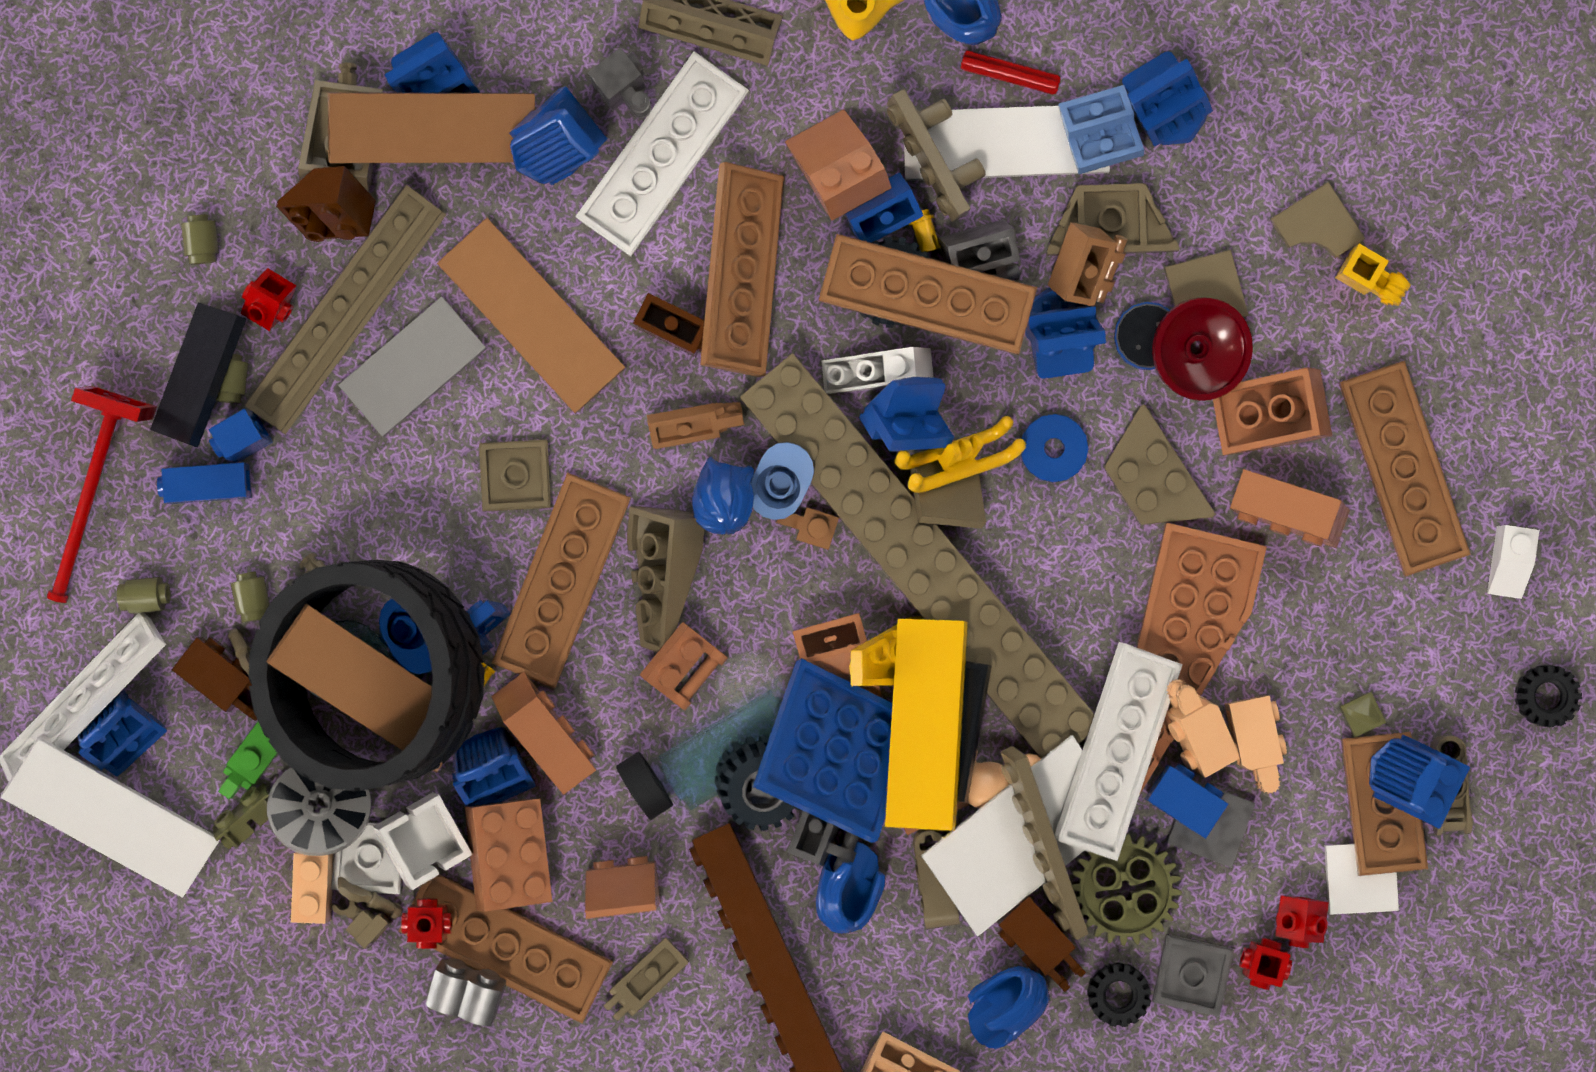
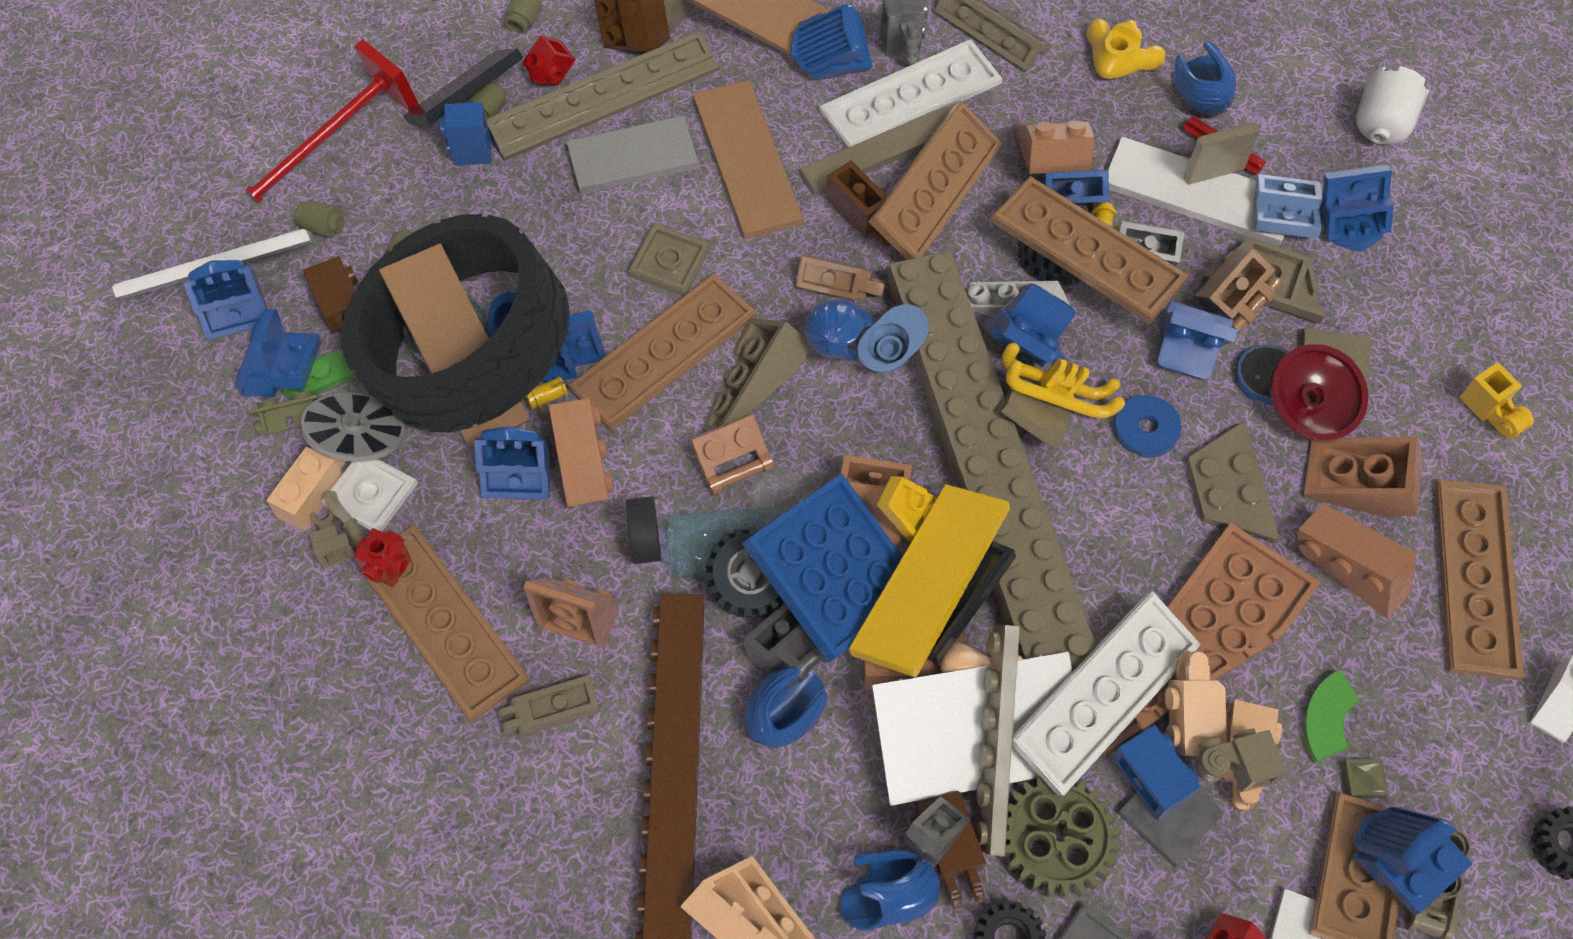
camera: 25 degrees right, 25 degrees down
(109, 817) = (176, 353): white tile -> none
(205, 483) = (420, 162): blue brick -> none
(205, 775) = (276, 358): none -> blue piece
(422, 839) = (422, 490): white piece -> none
(465, 992) = (381, 638): flat silver brick -> none
(508, 854) = (489, 534): nougat brick -> none
(663, 240) = (877, 150): none -> dark tan tile
(814, 527) = (901, 398): medium nougat plate -> none
(933, 167) = (1128, 150): dark tan plate -> none
(936, 903) = (865, 760): dark tan piece -> none
(1015, 109) = (1221, 153): none -> dark tan tile
(1026, 945) = (936, 830): none -> flat silver slope
(1258, 757) = (1250, 757): none -> dark tan brick
(1311, 670) = (1325, 717): none -> bright green tile
(1319, 221) = (1457, 347): dark tan tile -> none

